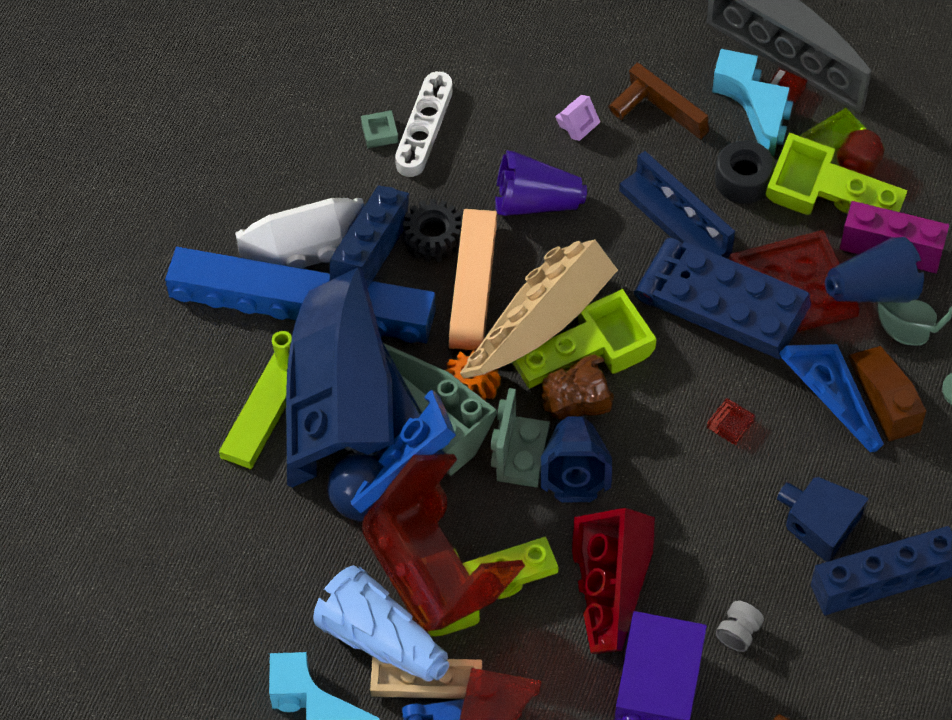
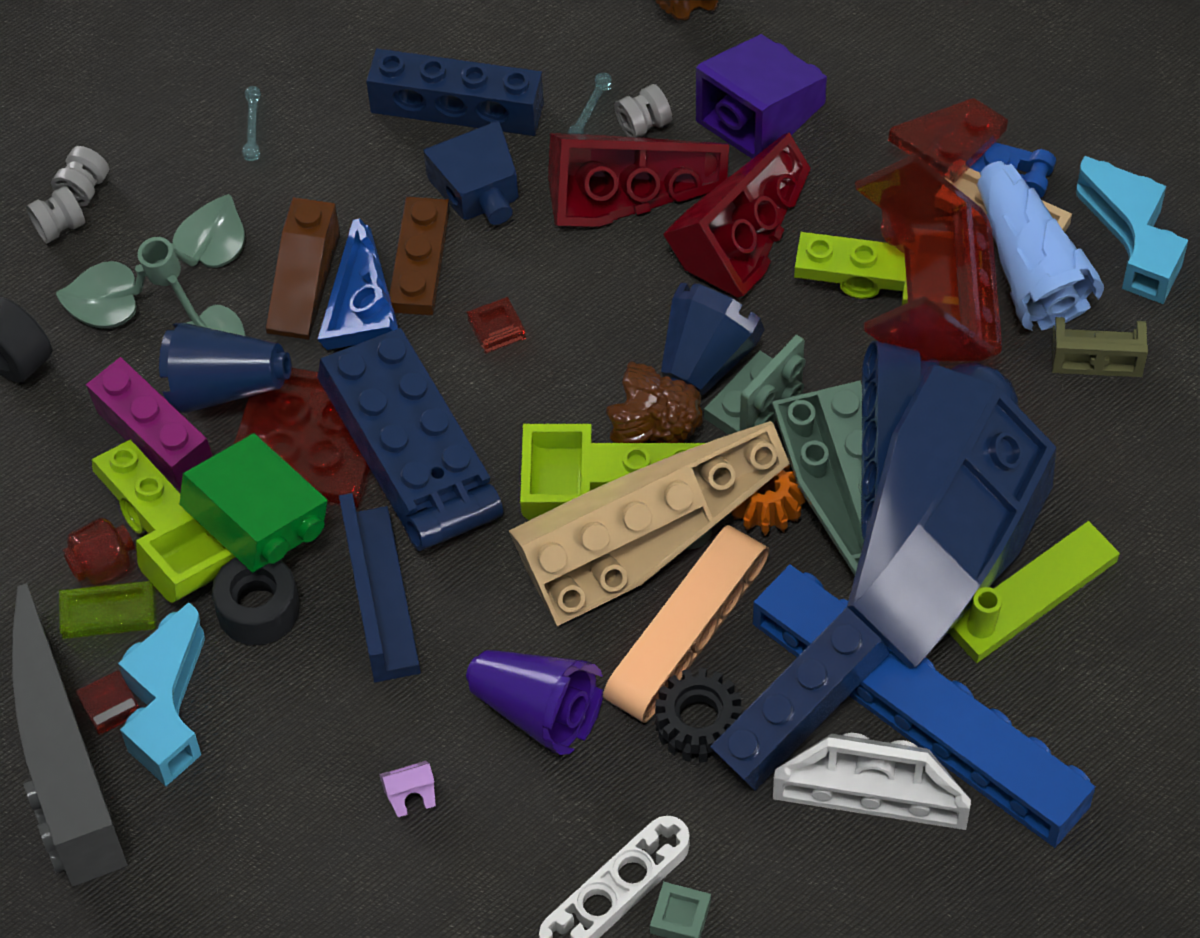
camera: 150 degrees left, 0 degrees up
(293, 597) = (1099, 351): none -> olive hinge
(418, 437) = (900, 349): blue wing -> none
(648, 86) = (287, 783): reddish brown piece -> none
(737, 556) = (619, 176): none -> dark red wedge
(780, 197) = (253, 502): none -> green brick
(792, 651) = (602, 83): none -> clear light blue hinge
(819, 443) = (419, 255): none -> reddish brown plate

